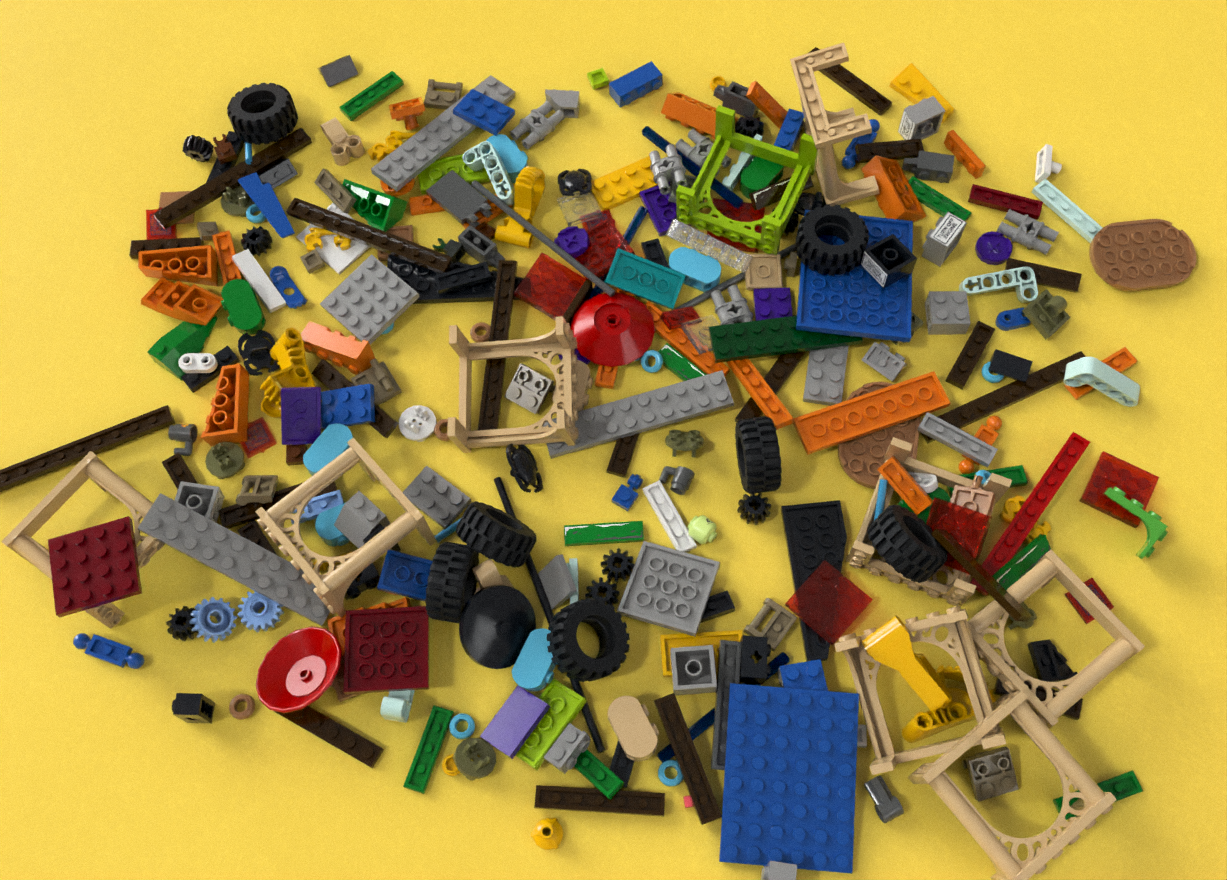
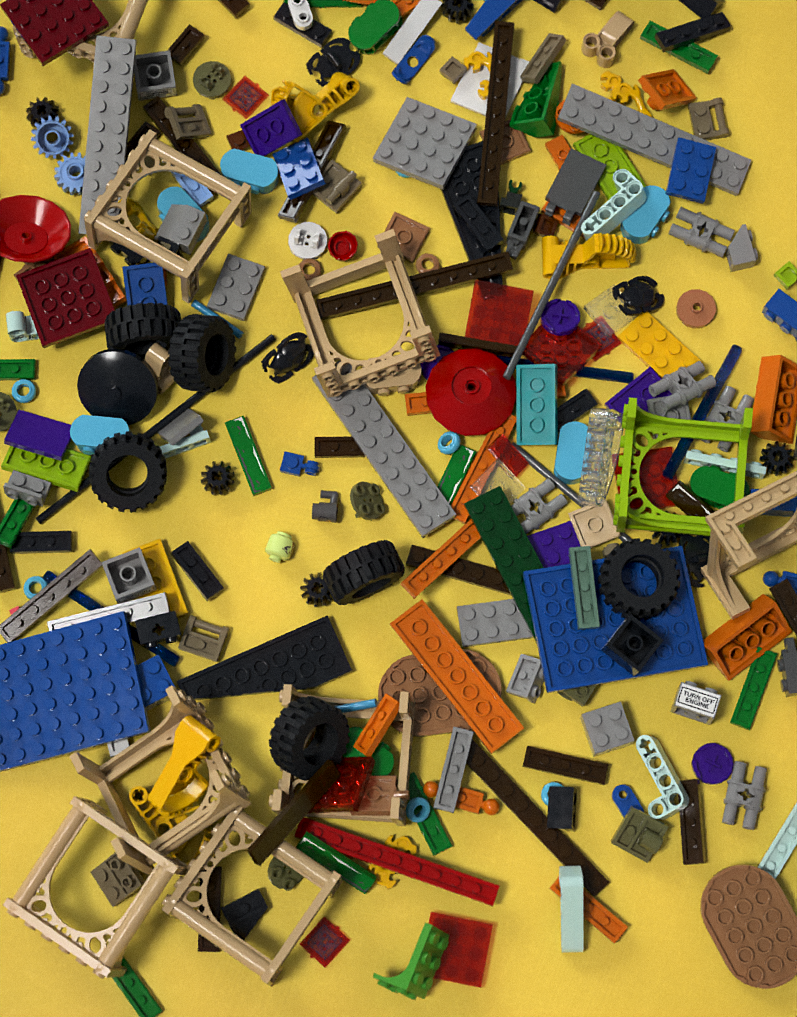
camera: 70 degrees right, 10 degrees up
(183, 433) = (225, 30): dark grey piece -> none
(229, 408) = (264, 61): orange wedge -> none
(337, 348) = (360, 133): orange wedge -> none
(364, 80) = (692, 31): none -> black plate
(436, 392) = (342, 245): none -> red hair
(439, 348) = (409, 235): none -> medium nougat tile
(529, 388) = (377, 332): plate -> none
(600, 155) = (696, 318): none -> nougat plate
(605, 587) = (183, 466): black gear -> none
(633, 728) = (61, 539): tan brick -> none
(669, 517) = (284, 512): white tile -> none
(669, 588) = (207, 532): light grey plate -> none
(826, 283) = (584, 587): none -> sand green plate
(828, 602) = (239, 685): clear red plate -> none
(886, 805) = (61, 788): dark grey piece -> none
(927, 482) = (391, 742): white plate -> none
(1004, 201) = (777, 763): dark red plate -> none

